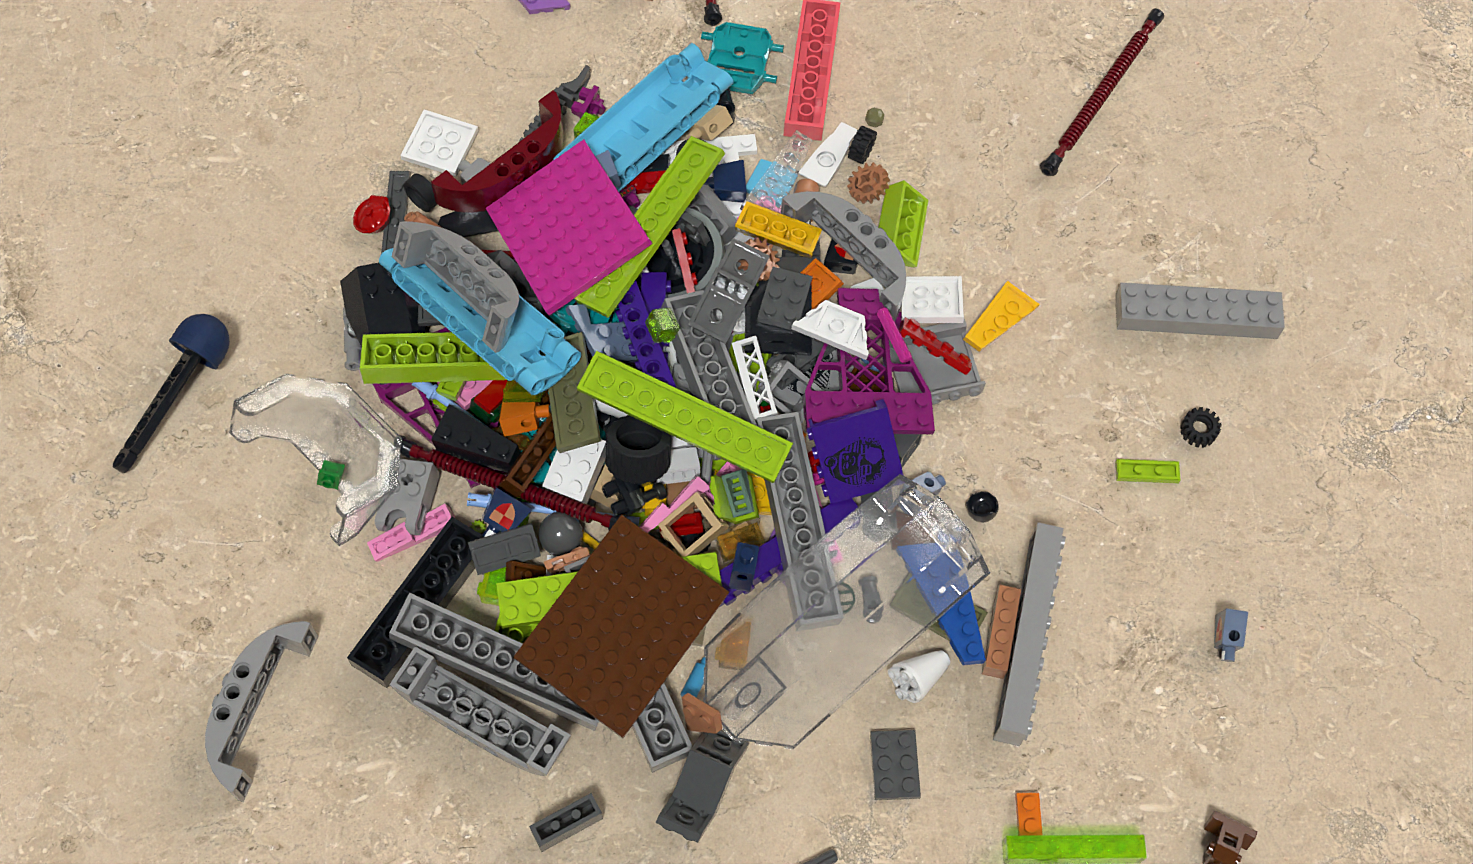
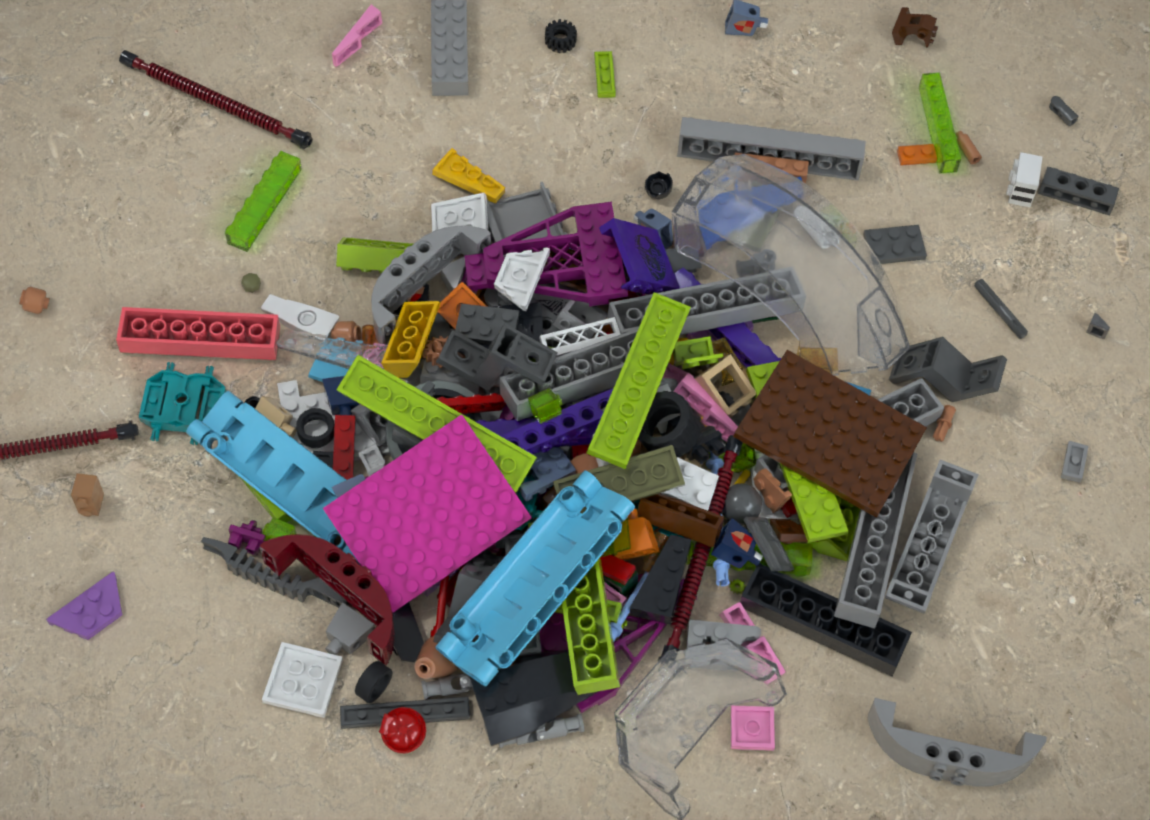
camera: 95 degrees left, 5 degrees down
(316, 518) = (752, 728): none -> bright pink plate
(330, 474) = (710, 718): green bracket -> none
(465, 271) = (514, 573): light grey slope -> none
(566, 822) = (1001, 474): dark grey brick -> none
(644, 775) = (944, 423): none -> nougat axle
(700, 716) = (893, 372): nougat wing -> none
(731, 494) = (679, 352): sand green slope -> none
(744, 564) = (757, 342): dark blue torso -> none
(862, 144) = (291, 285): black tyre -> none
(868, 183) = (327, 287): nougat gear -> none
(894, 335) = (520, 233): dark pink axle -> none
(934, 346) = (510, 221): red wing -> none
(972, 128) = (263, 201): none -> clear neon green brick
(1182, 216) = (352, 41): none -> bright pink slope

